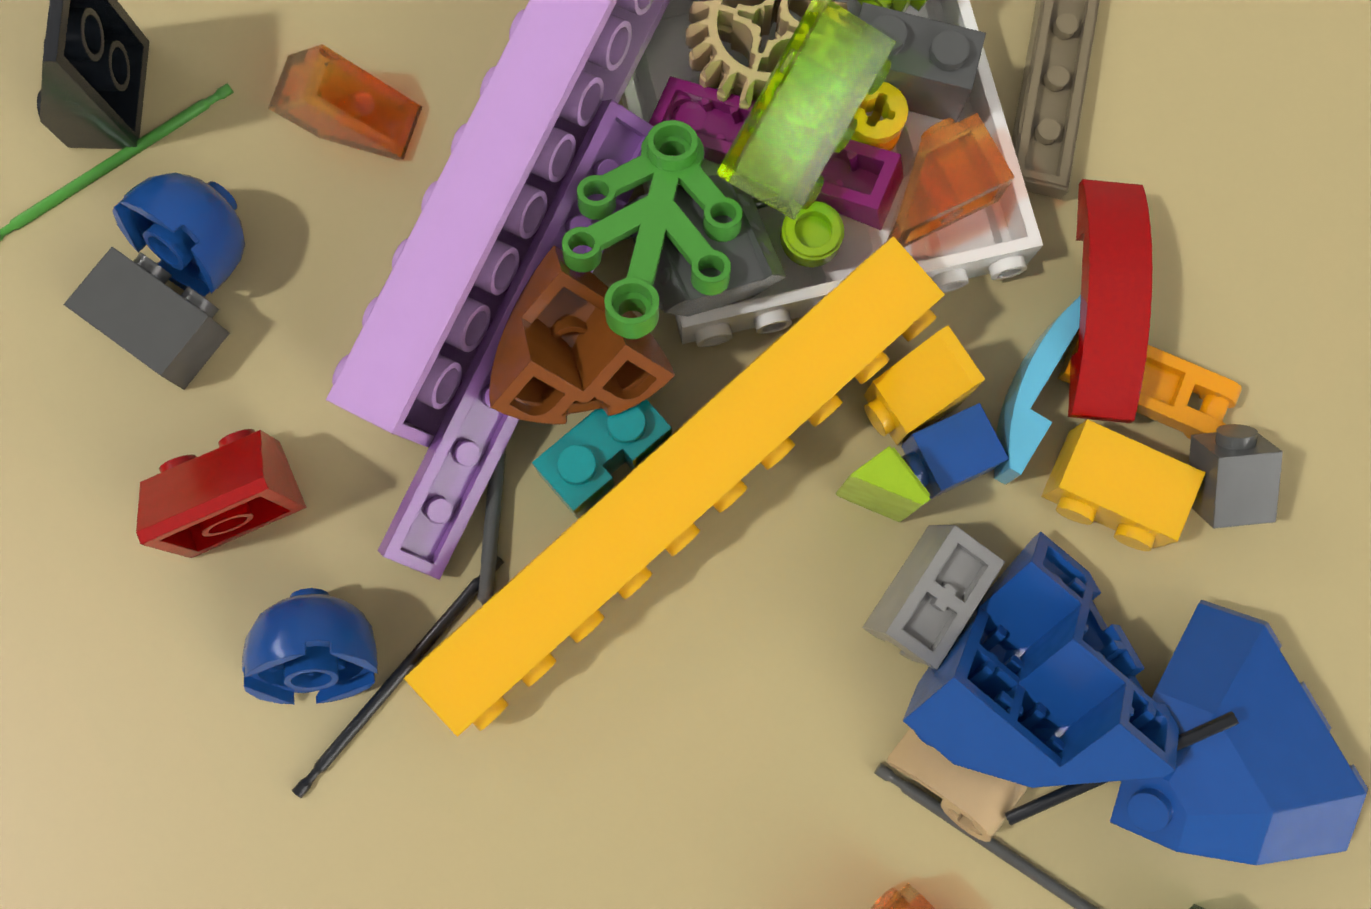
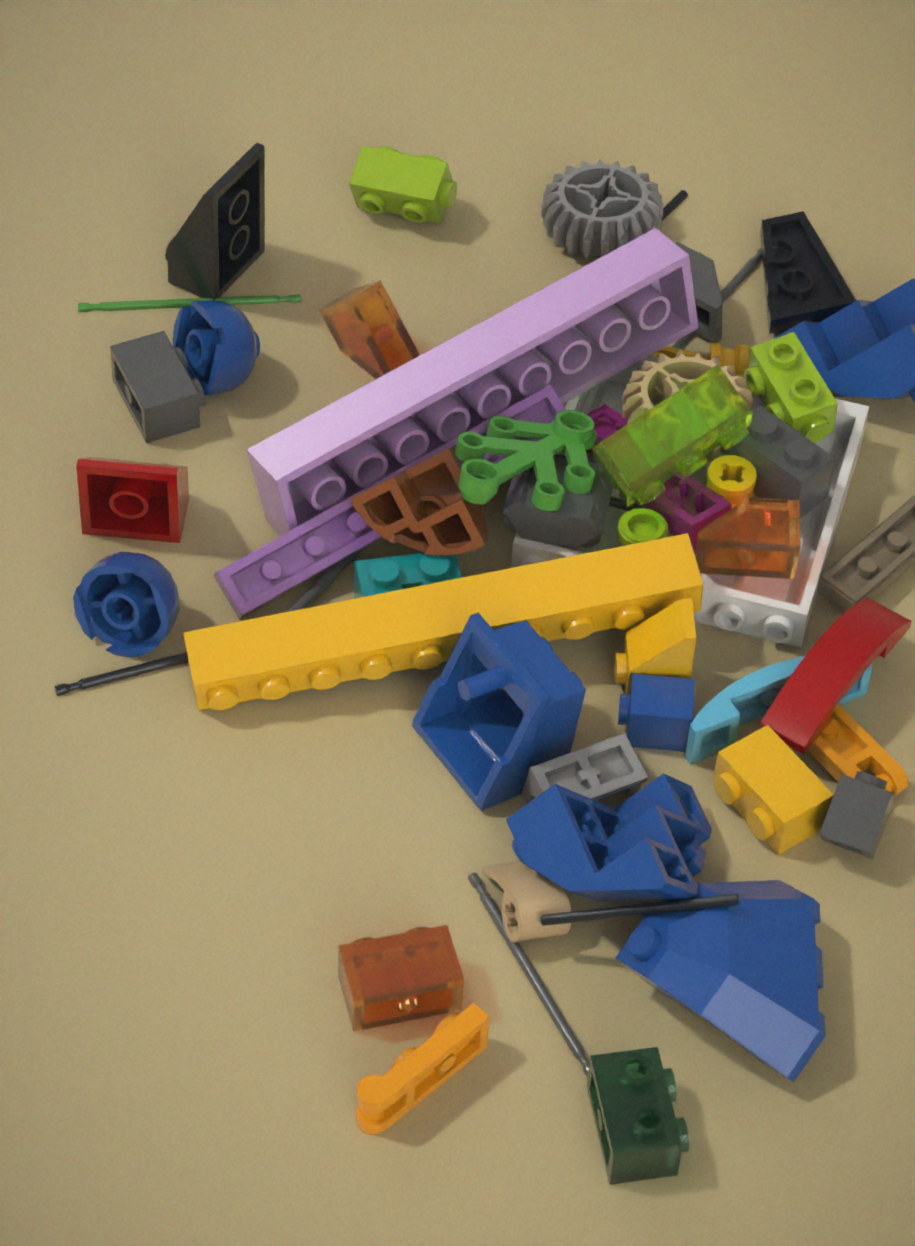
camera: 30 degrees right, 30 degrees down
(811, 571) = (499, 709): none -> blue piece
(885, 486) = (591, 665): lime slope -> none

